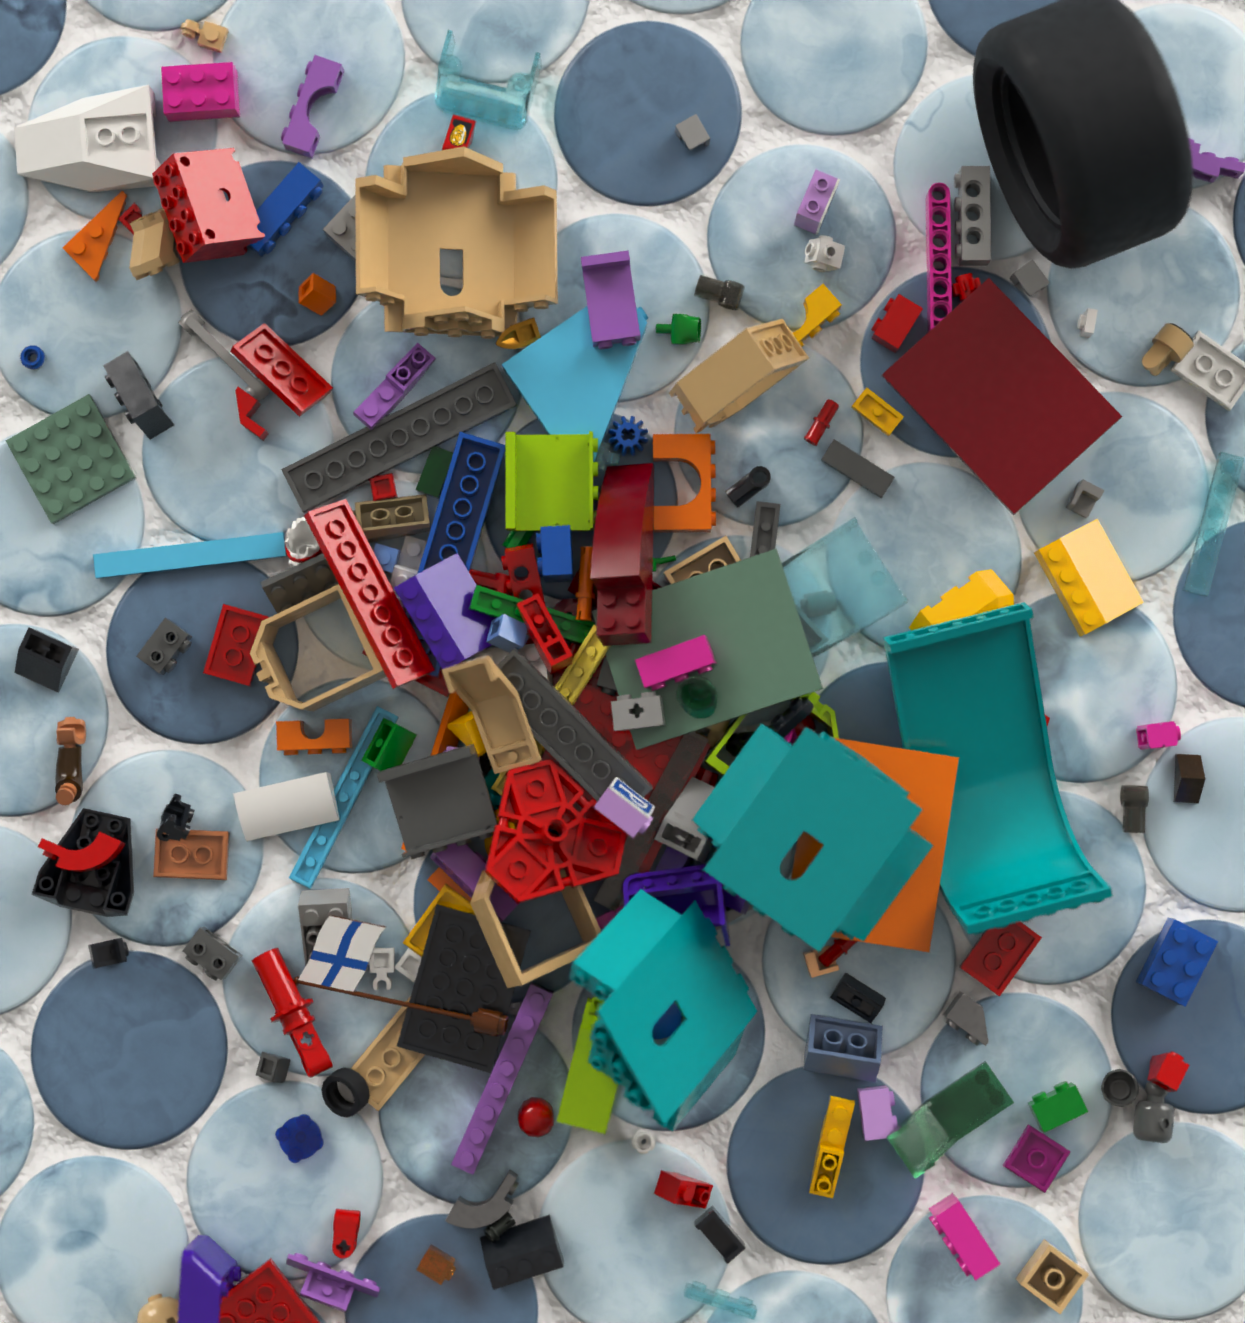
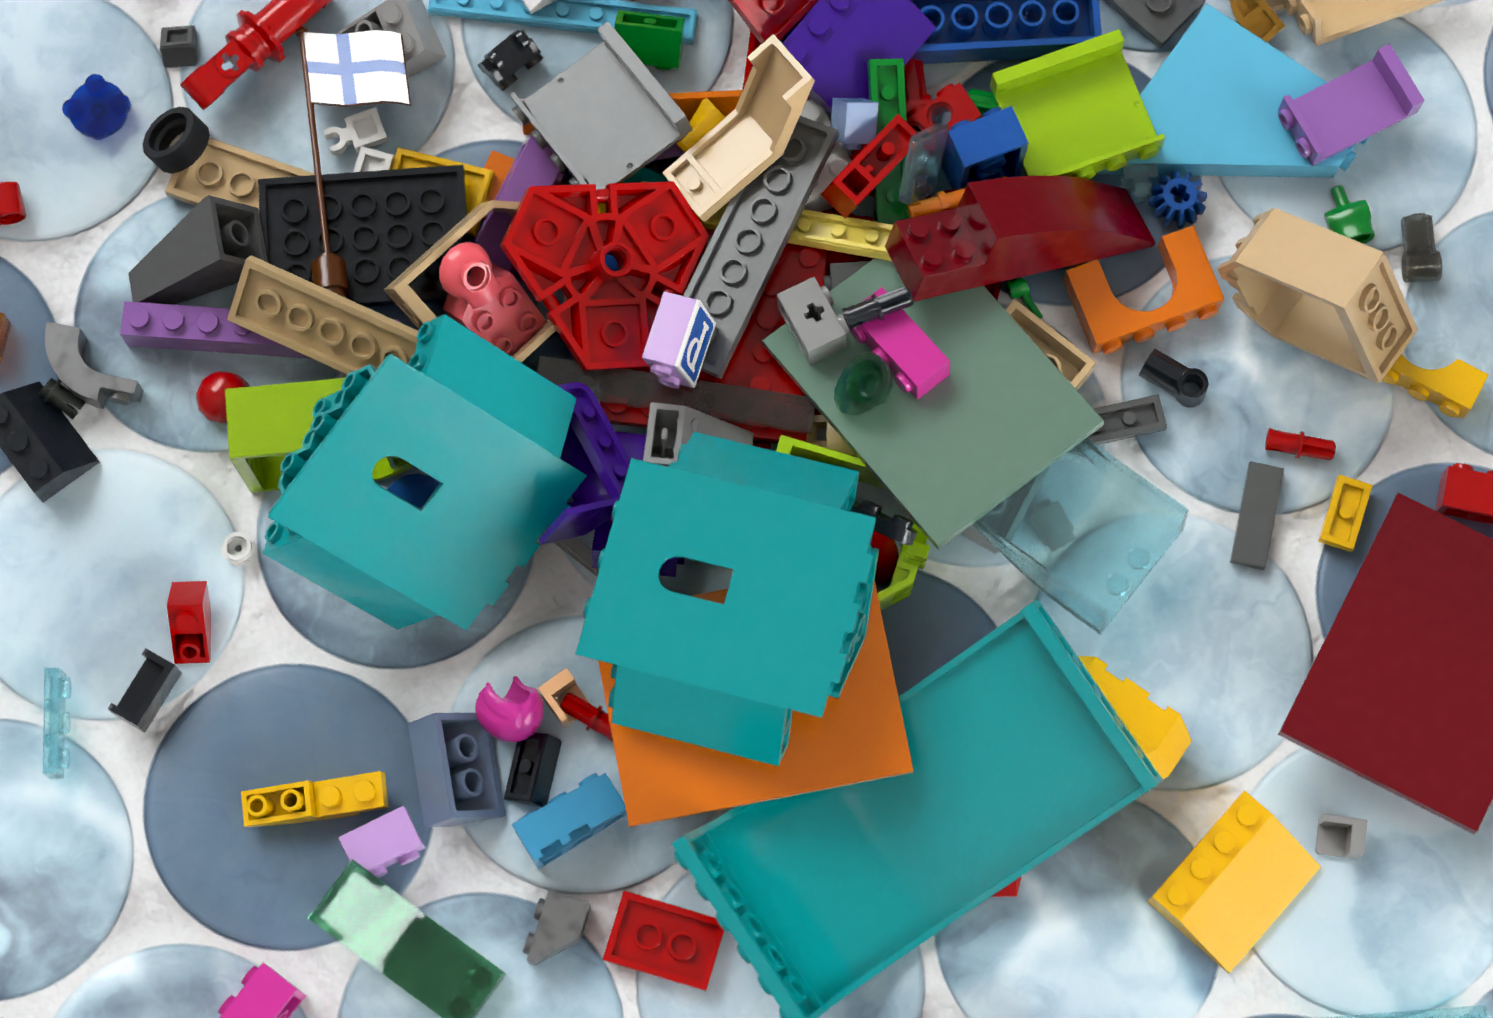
camera: 65 degrees right, 10 degrees down
(367, 844) = (509, 57): none -> black piece
(437, 1101) = (200, 253): none -> dark grey slope
(526, 1034) = (316, 320): none -> tan plate
(544, 922) = (487, 299): none -> coral brick
(554, 598) = (923, 163): none -> clear light blue plate
(651, 669) = (877, 307): none -> black axle
(822, 999) = (513, 716): none -> dark pink piece
(902, 987) = (570, 819): none -> dark azure wedge

